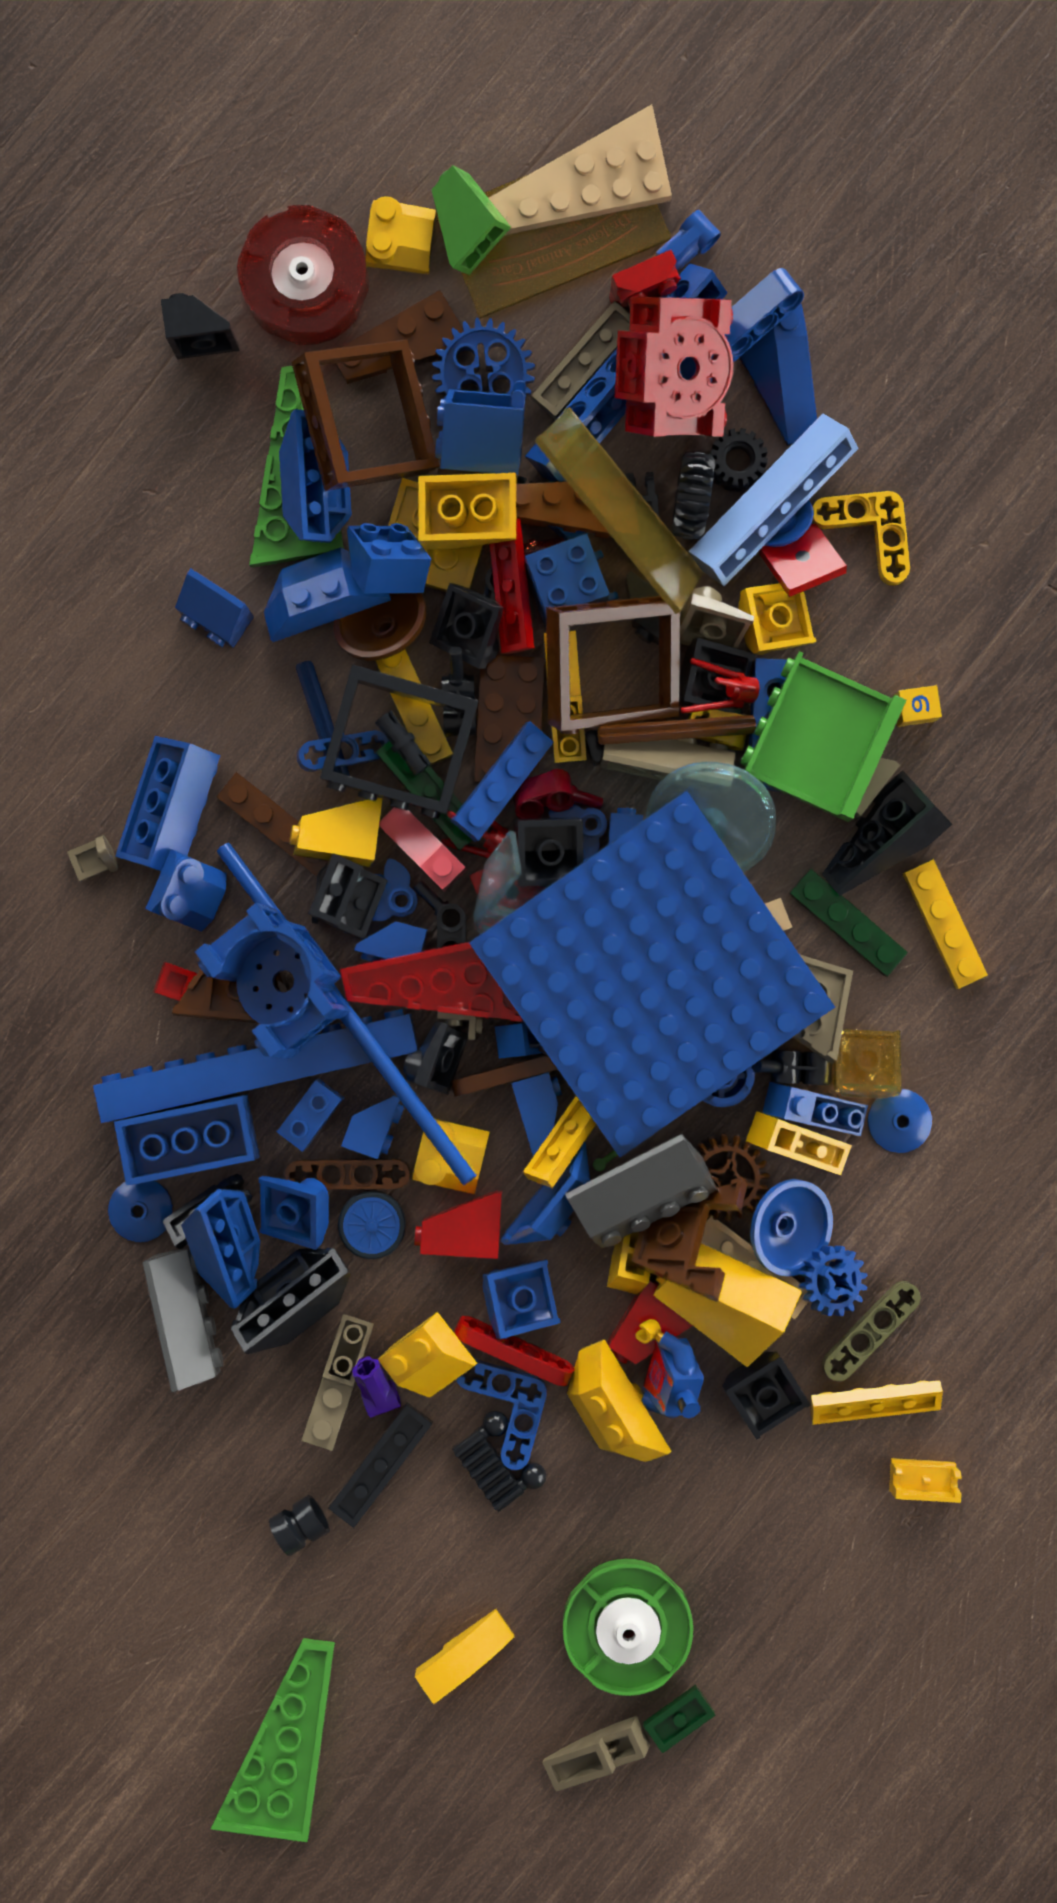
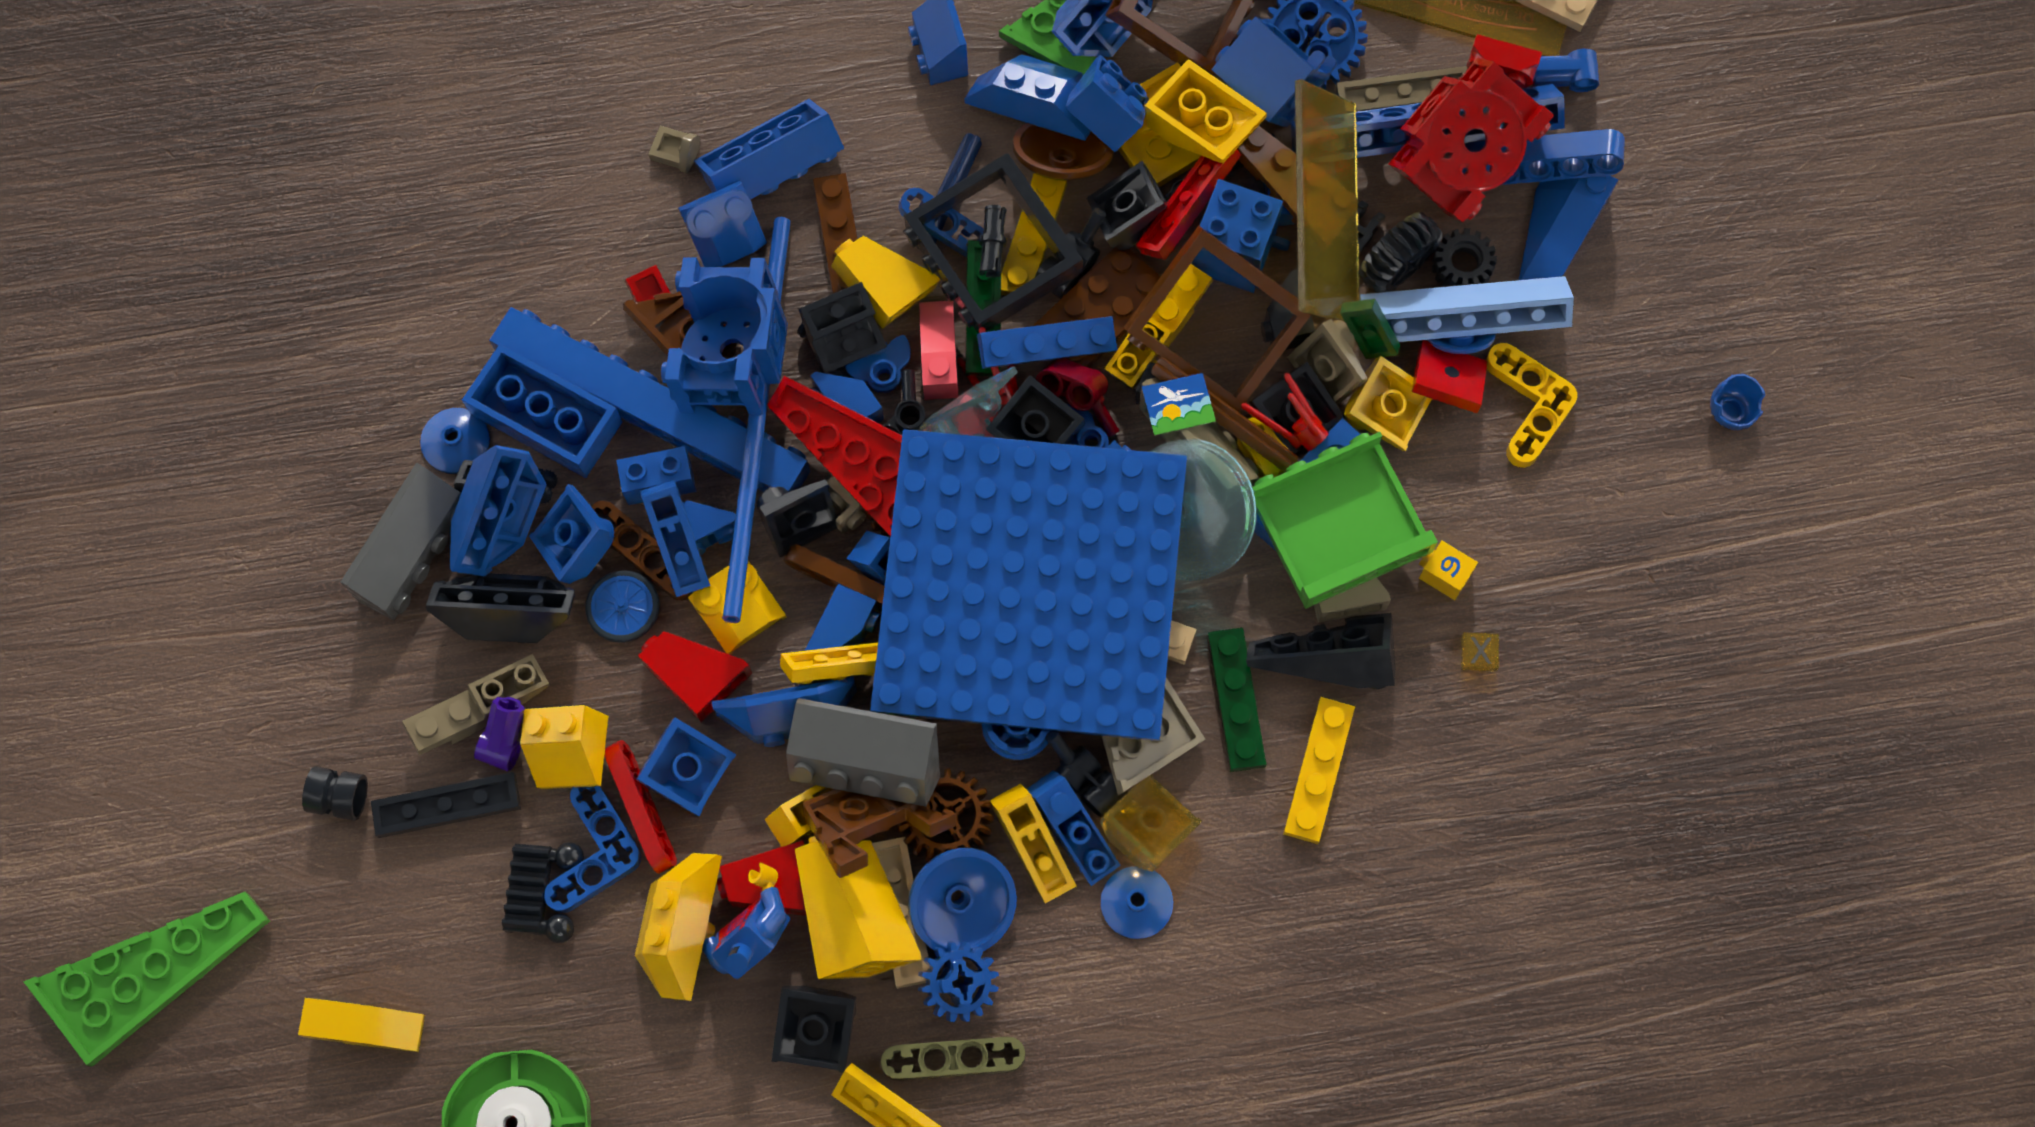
camera: 45 degrees right, 15 degrees down
(370, 1152) = (675, 538): none -> blue slope
(641, 752) = (1178, 404): none -> sticker
(725, 576) = (1370, 328): none -> dark green plate
(984, 745) = (1479, 651): none -> clear yellow tile
(1015, 407) = (1737, 402): none -> blue hair

